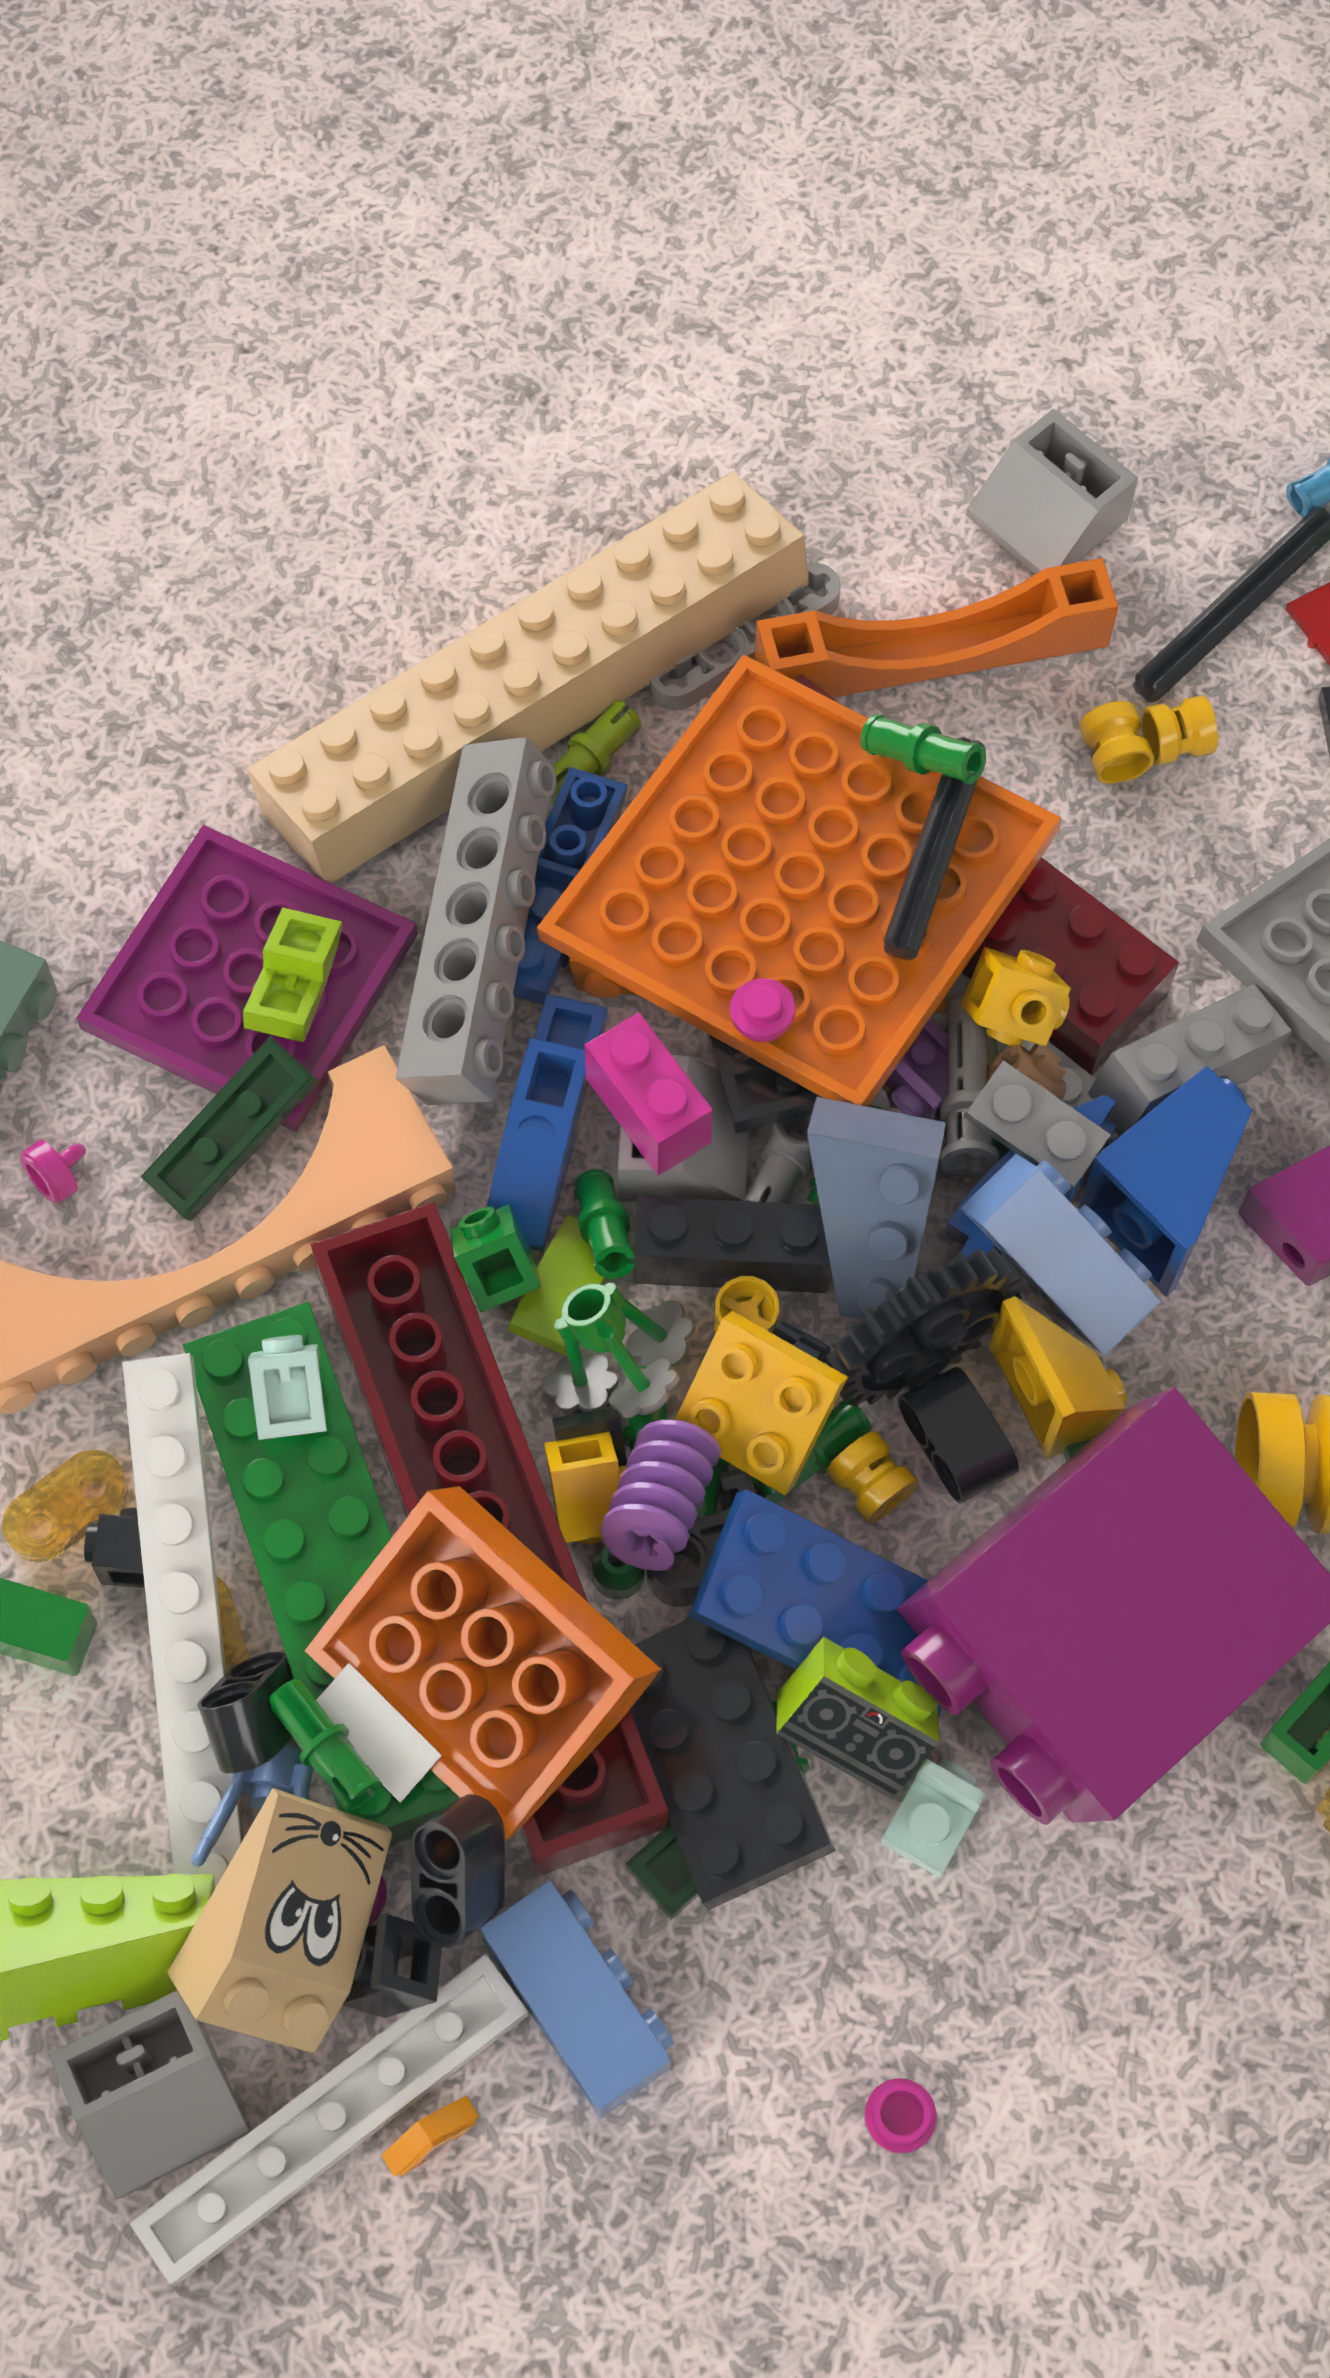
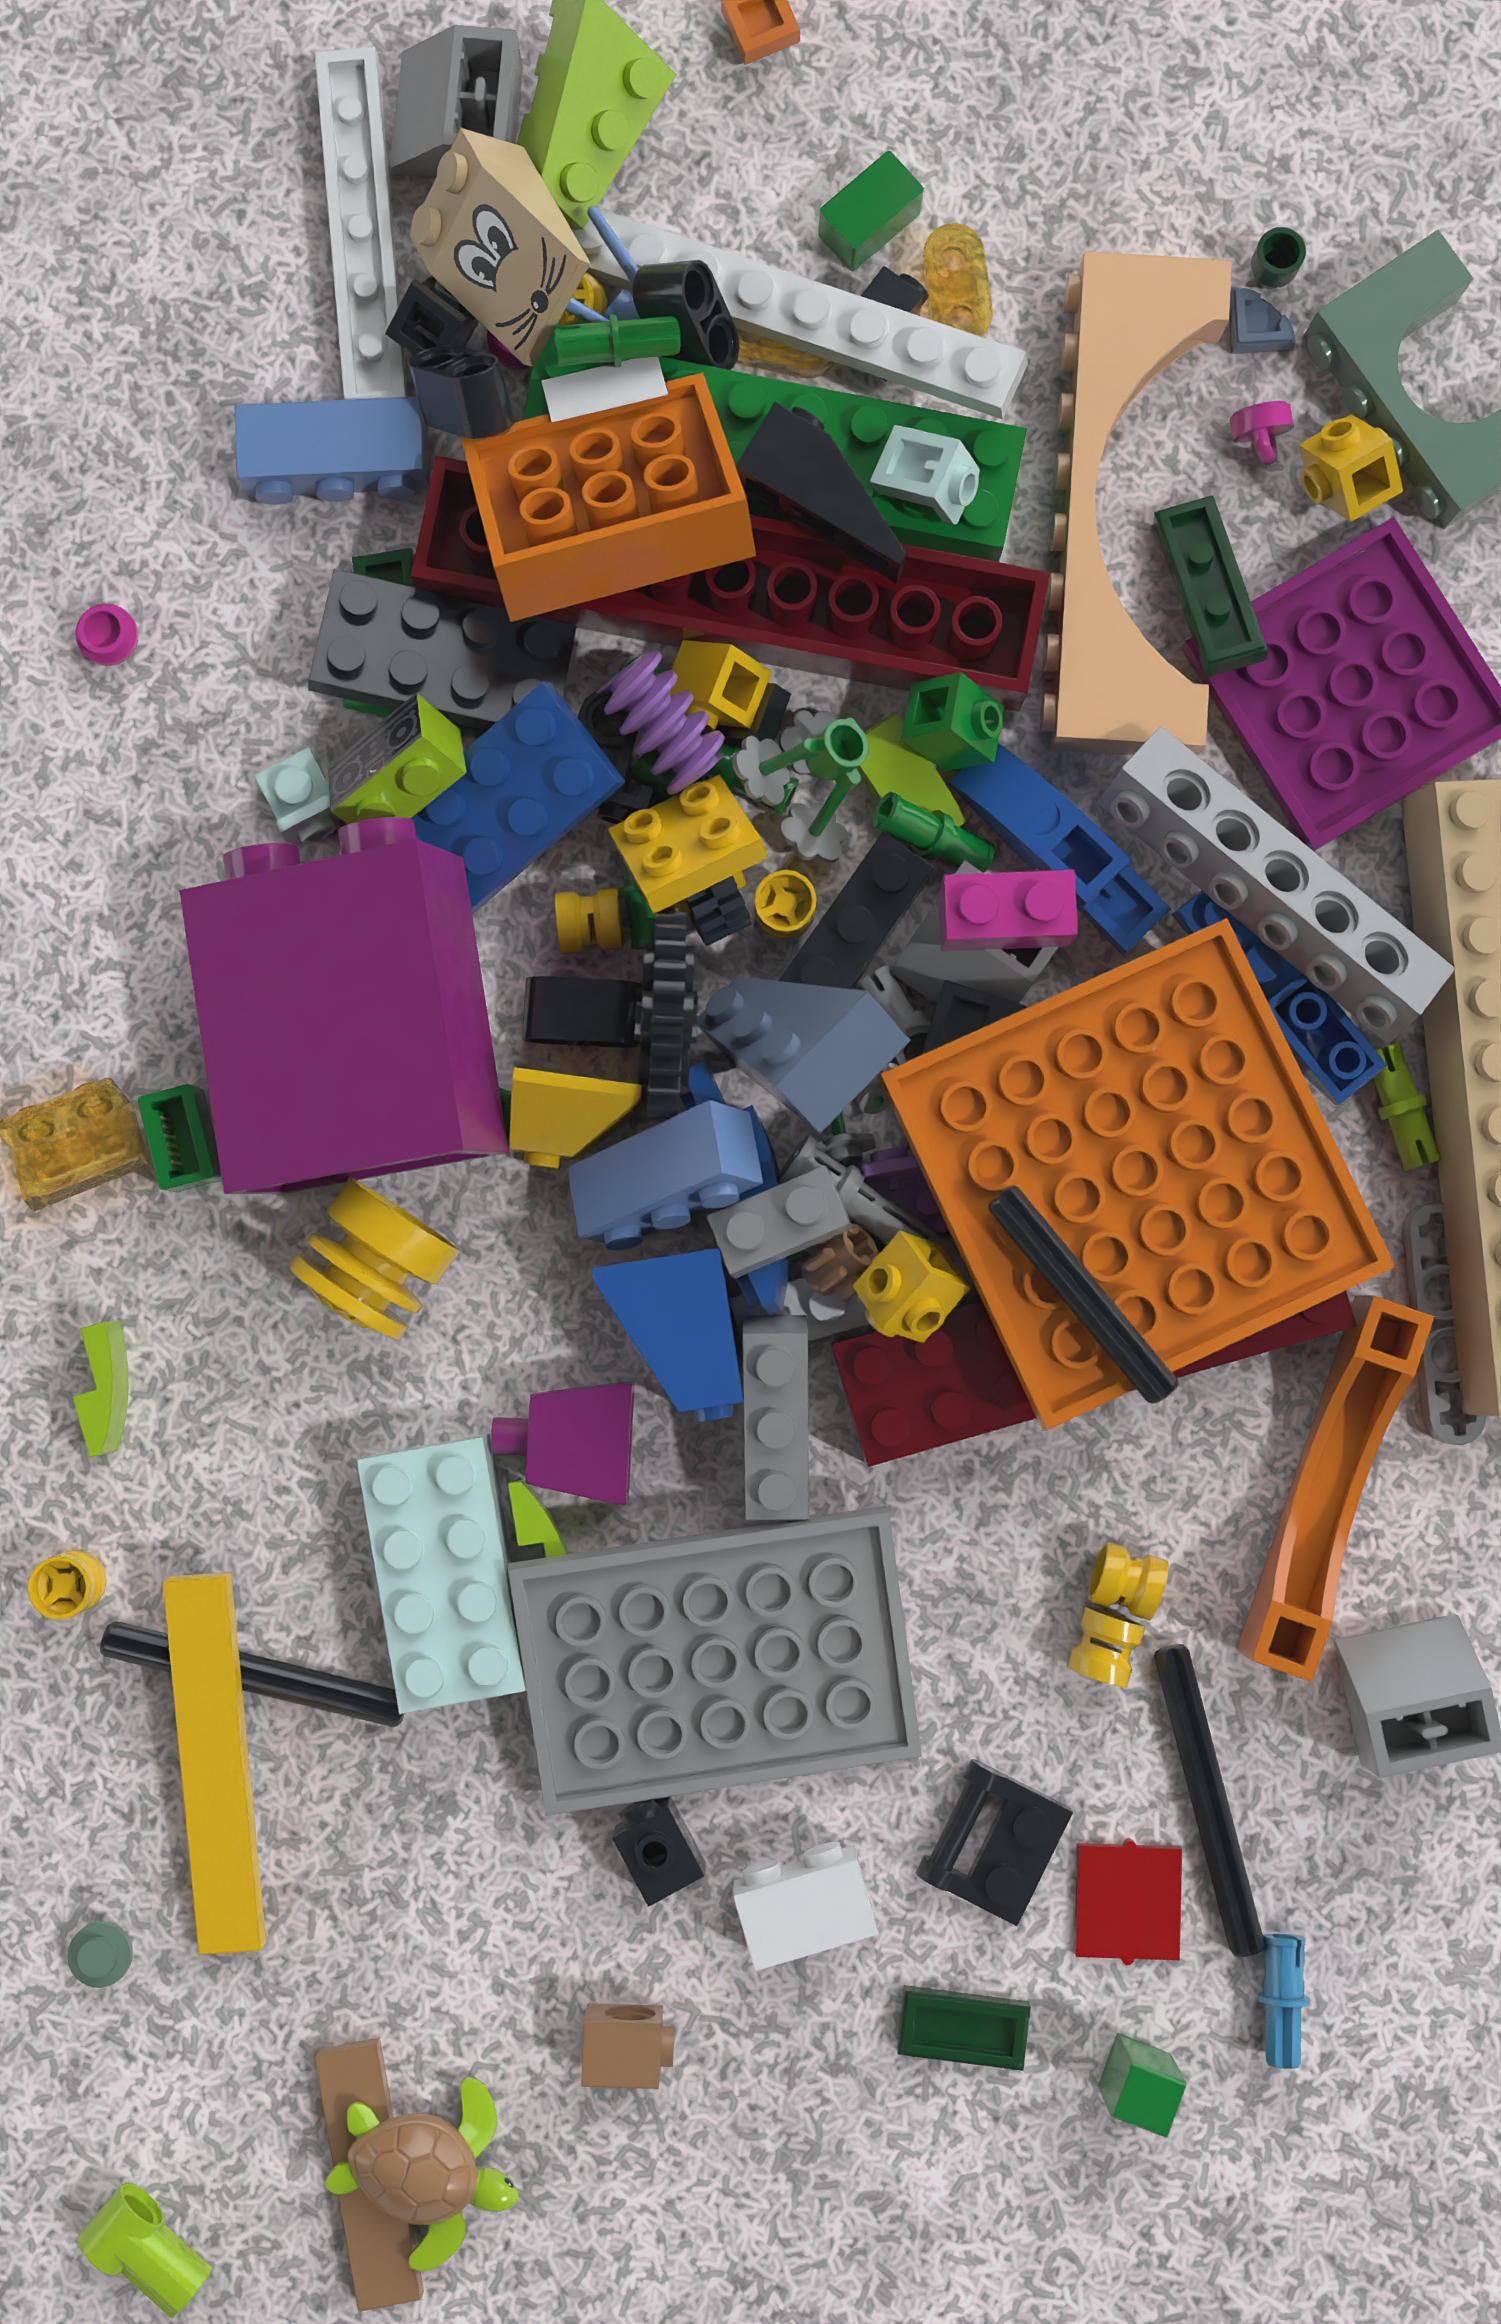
camera: 125 degrees right, 20 degrees up
(53, 1071) = (1350, 467): none -> yellow brick
(293, 974) = (1321, 713): lime slope -> none
(357, 1476) = (809, 481): none -> black slope
(428, 2134) = (304, 294): light orange tile -> none
(762, 1009) = (1018, 1044): dark pink plate -> none
(923, 748) = (1181, 1341): green pin -> none

